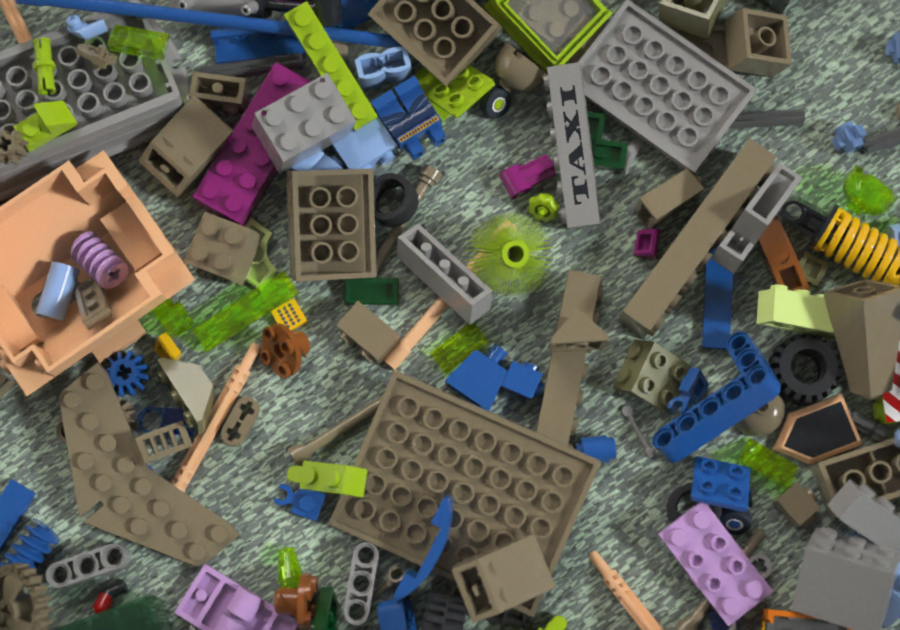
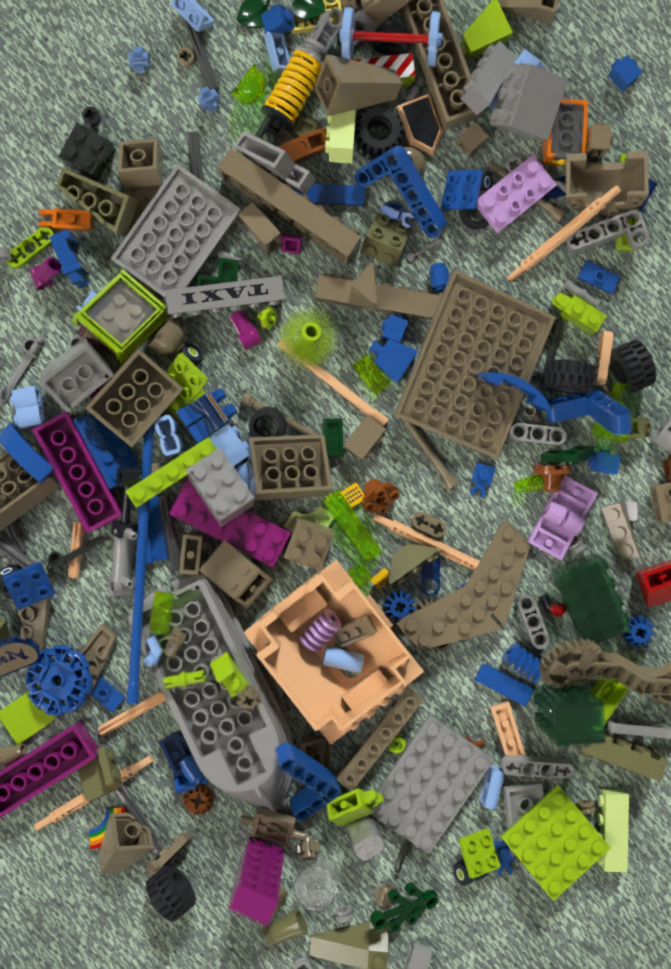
camera: 90 degrees left, 10 degrees up
(141, 450) = (451, 591): dark tan slope -> none
(329, 478) = (469, 458): lime hinge -> none
(444, 273) = (322, 384): light grey brick -> none
(502, 577) = (533, 336): dark tan slope -> none
(767, 464) = (443, 160): clear neon green slope -> none

